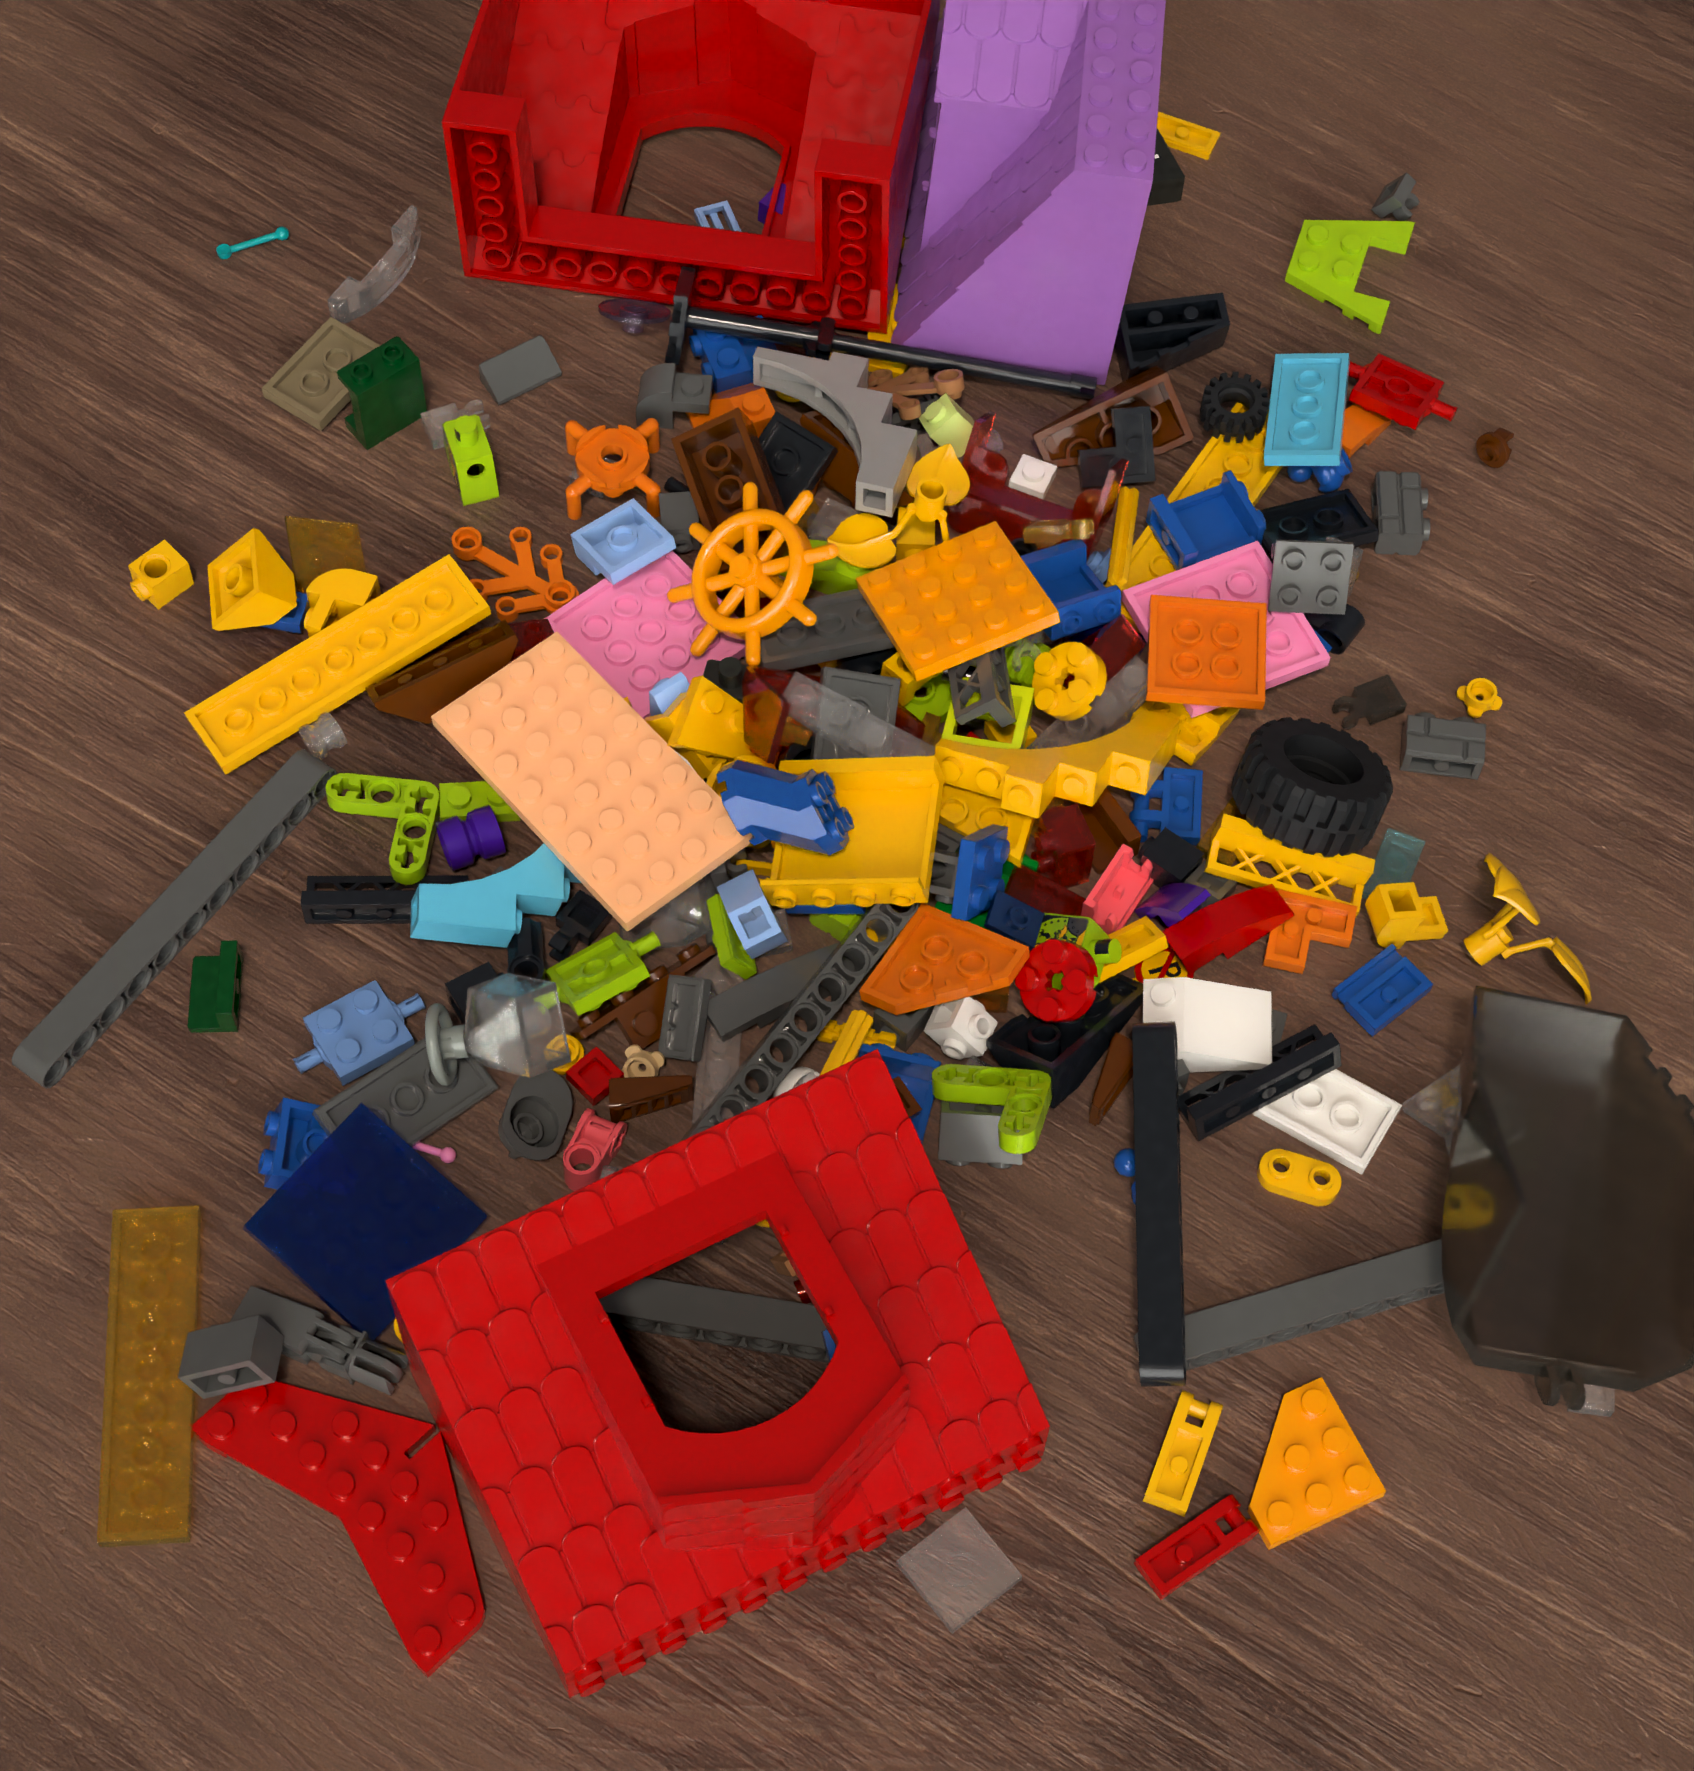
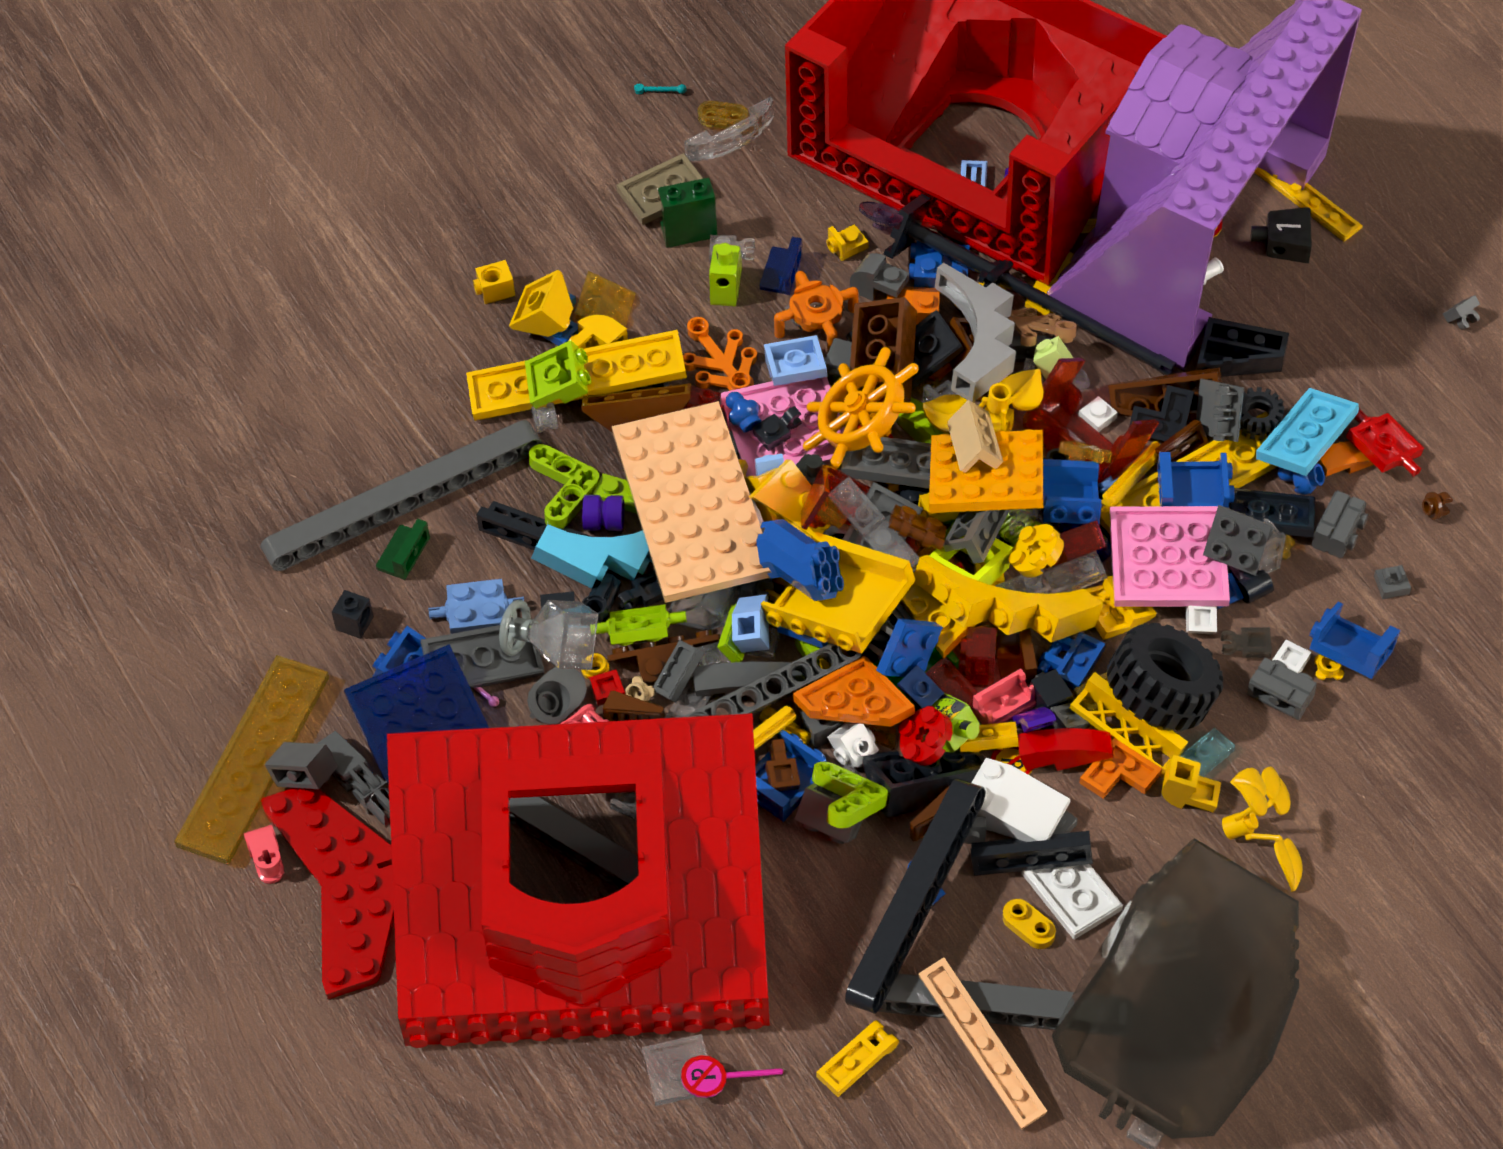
camera: 30 degrees right, 5 degrees down
(192, 1109) = (352, 614): none -> black brick
(232, 1499) = (265, 854): none -> coral piece
(320, 672) = (557, 375): none -> lime plate
(354, 249) = (721, 114): none -> clear yellow plate
(519, 370) = (781, 227): dark grey slope -> none
(535, 425) = (782, 267): none -> clear blue panel
(593, 633) = (743, 412): none -> blue animal
(601, 363) = (846, 242): none -> yellow bracket
(644, 644) = (775, 431): none -> black plate
(911, 706) = (909, 523): none -> reddish brown plate
(921, 562) = (974, 437): none -> tan panel
(1006, 1566) = (706, 1076): none -> piece
(1161, 475) = (1183, 439): none -> reddish brown tile
(1190, 419) = (1220, 409): none -> dark grey hinge
(1195, 1547) = (834, 1116): red plate -> none
(1206, 652) = (1141, 565): orange plate -> none
(1300, 695) = (1201, 619): none -> white plate
(1310, 1468) = (935, 1101): light orange plate -> none
(1331, 260) = (1395, 336): lime wing -> none
(1338, 1365) = (982, 1043): none -> light nougat plate
(1382, 990) = (1150, 828): blue plate -> none
(1432, 699) = (1293, 656): none -> white plate
(1494, 561) = (1392, 582): none -> dark grey tile
(1498, 659) = (1352, 644): none -> blue panel

